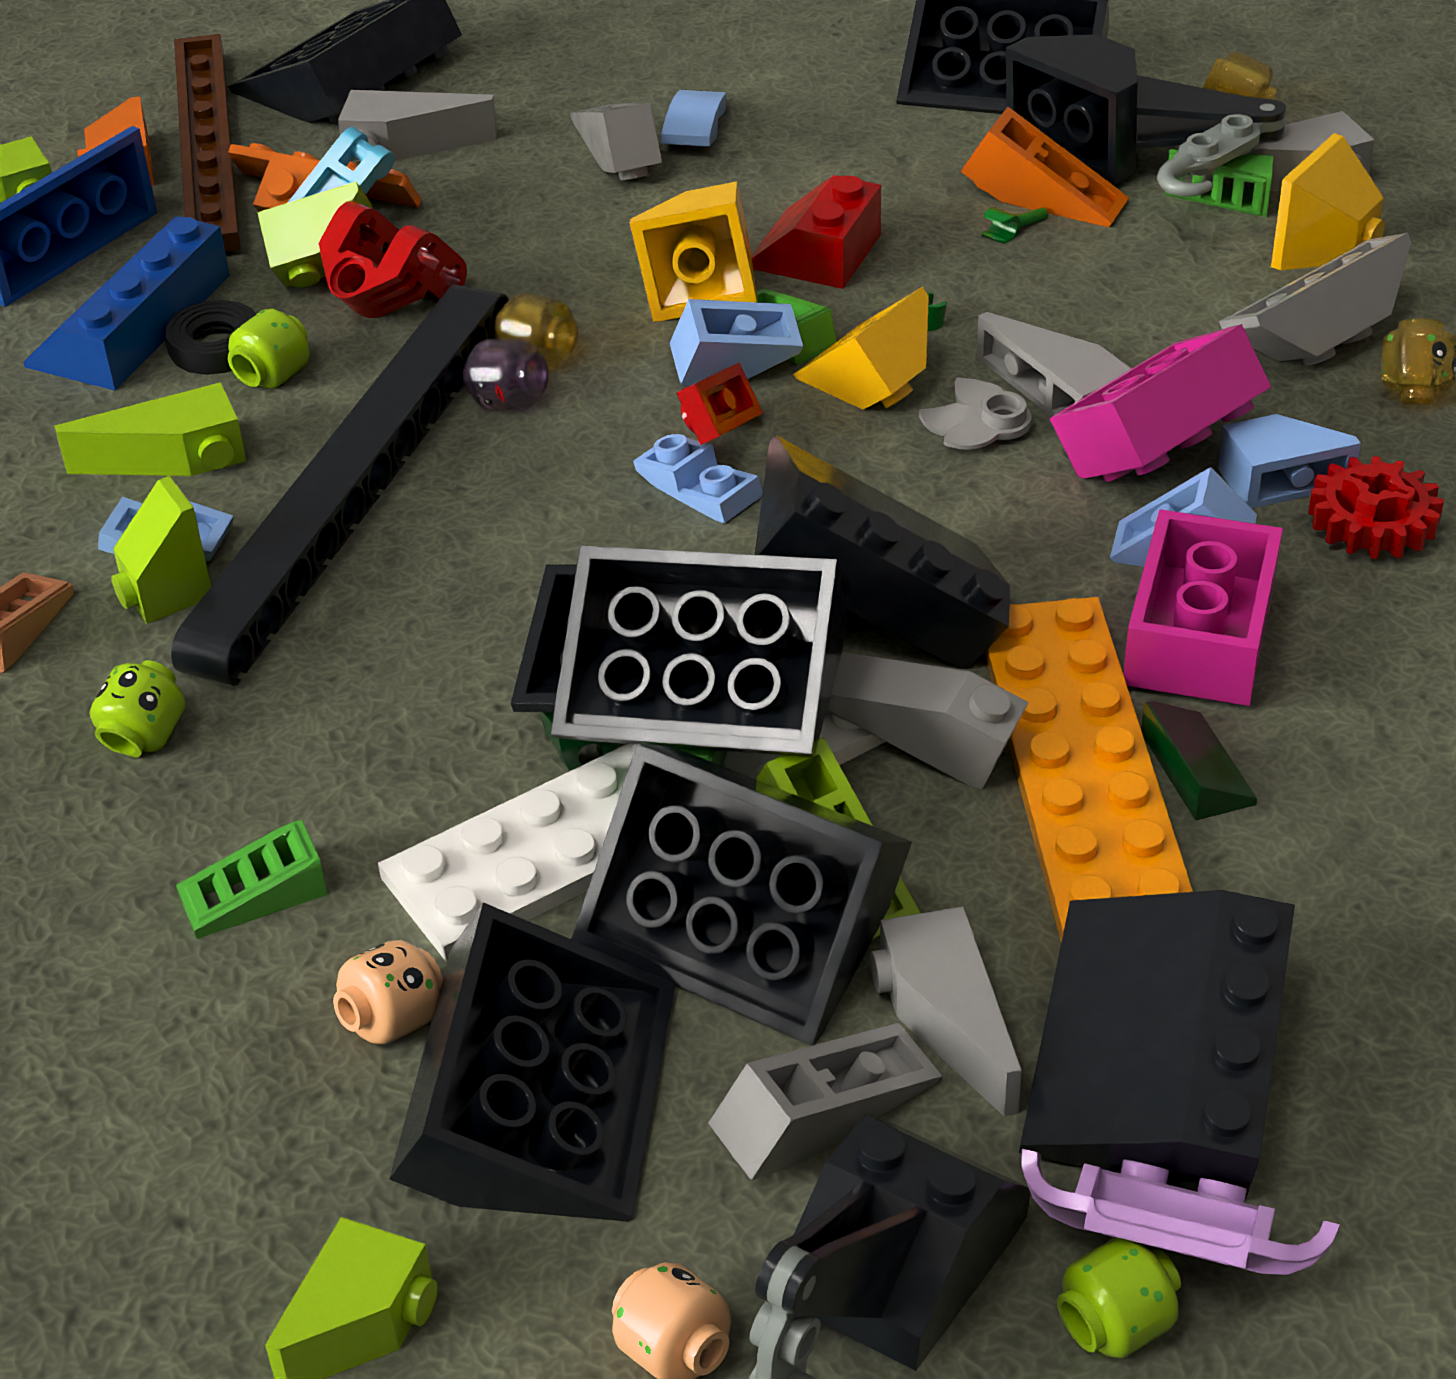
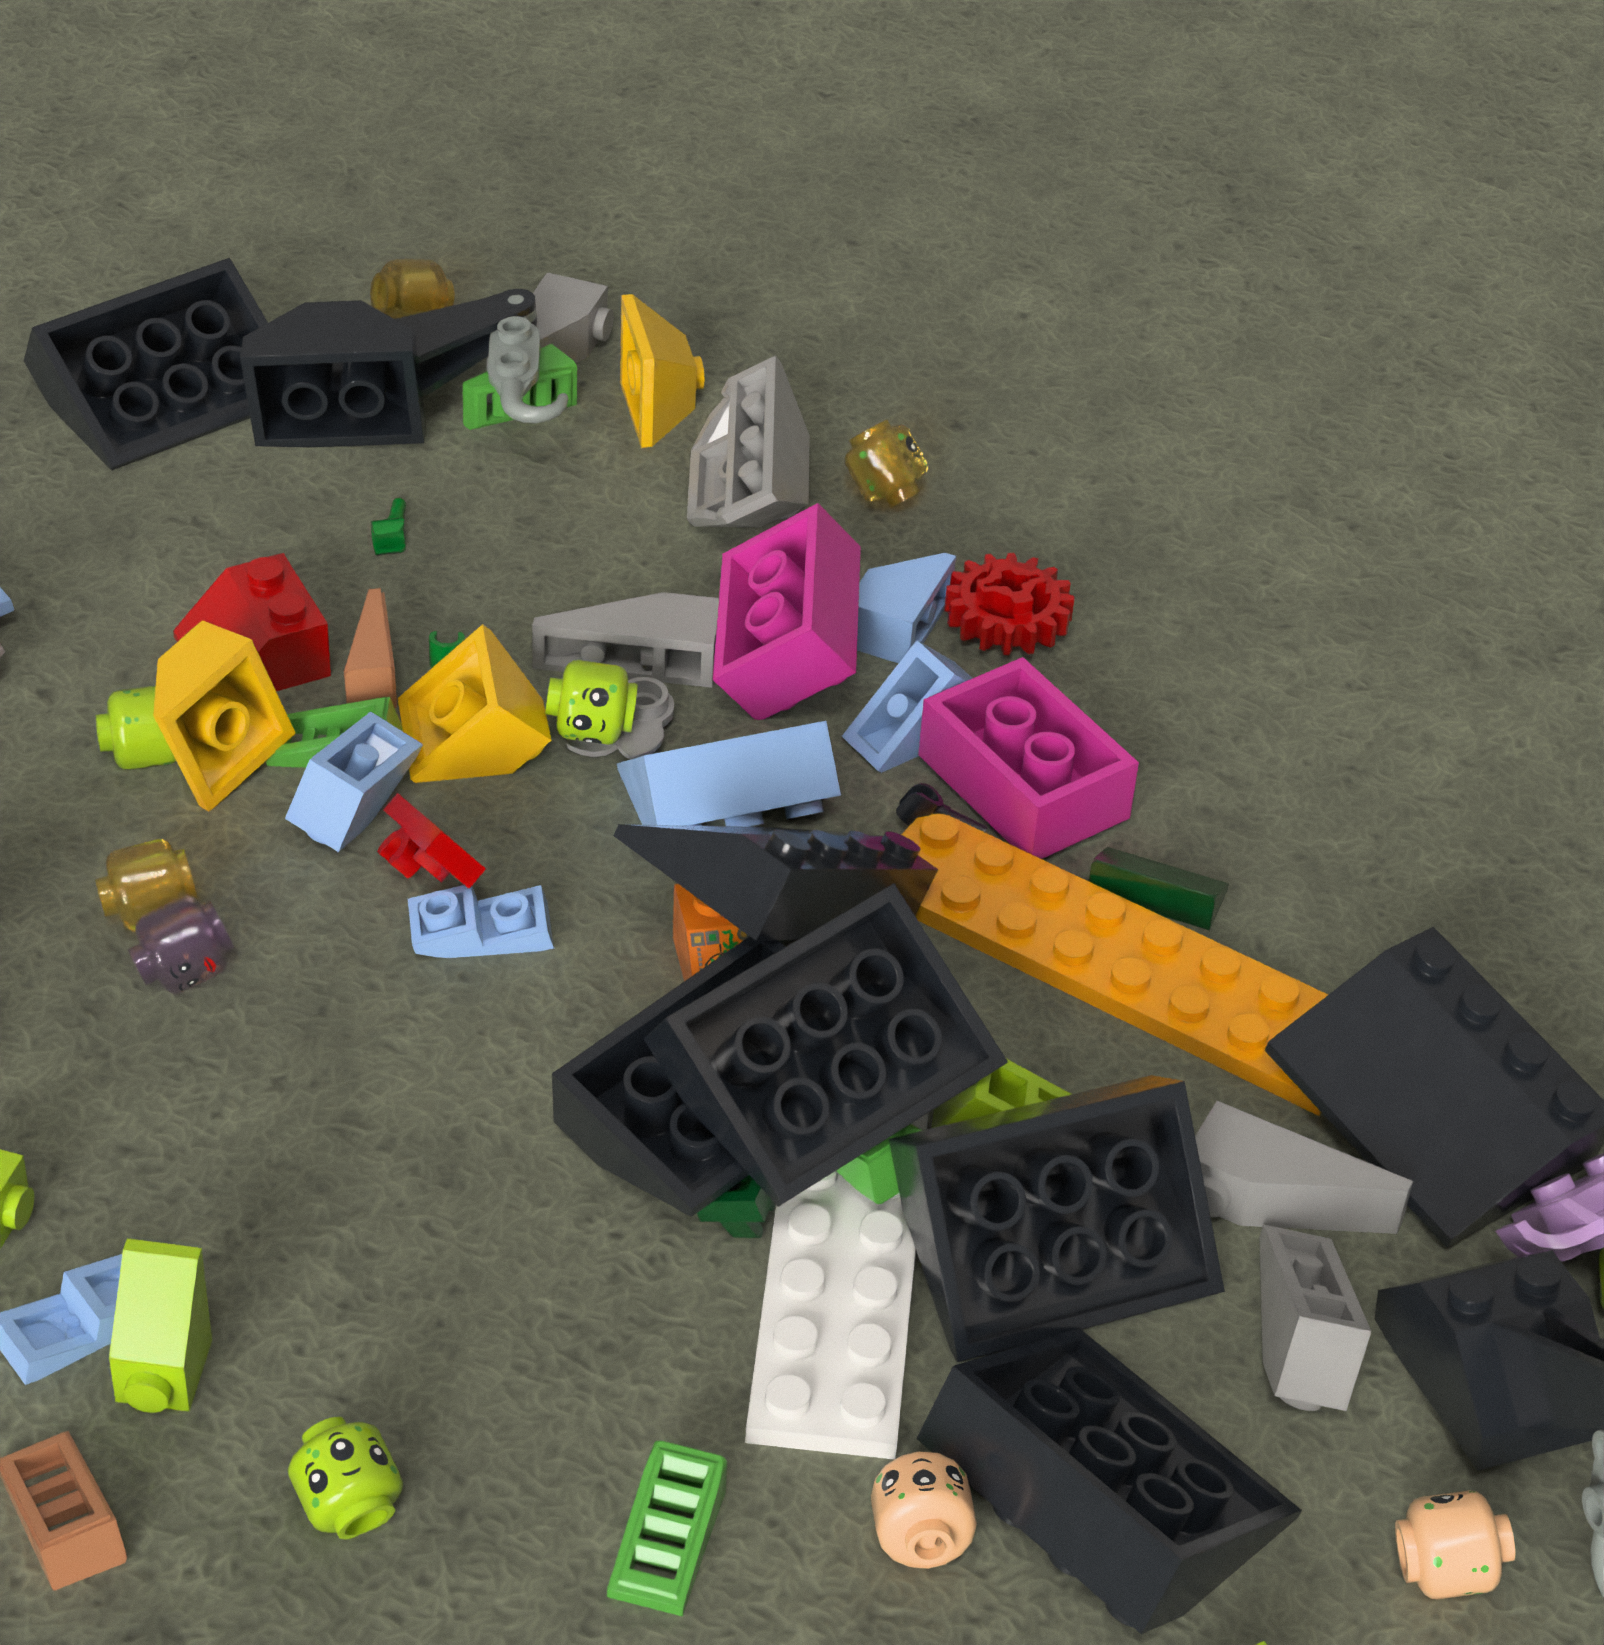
camera: 55 degrees left, 0 degrees up
(334, 491) = (193, 1149): black beam -> none
(865, 284) = (370, 662): none -> nougat slope
(929, 712) = (1009, 968): light grey slope -> none
(946, 384) = (592, 702): none -> lime head
(978, 491) = (735, 778): none -> light blue slope
(1035, 172) = (362, 469): orange slope -> none
(1101, 593) = (925, 800): none -> black hand

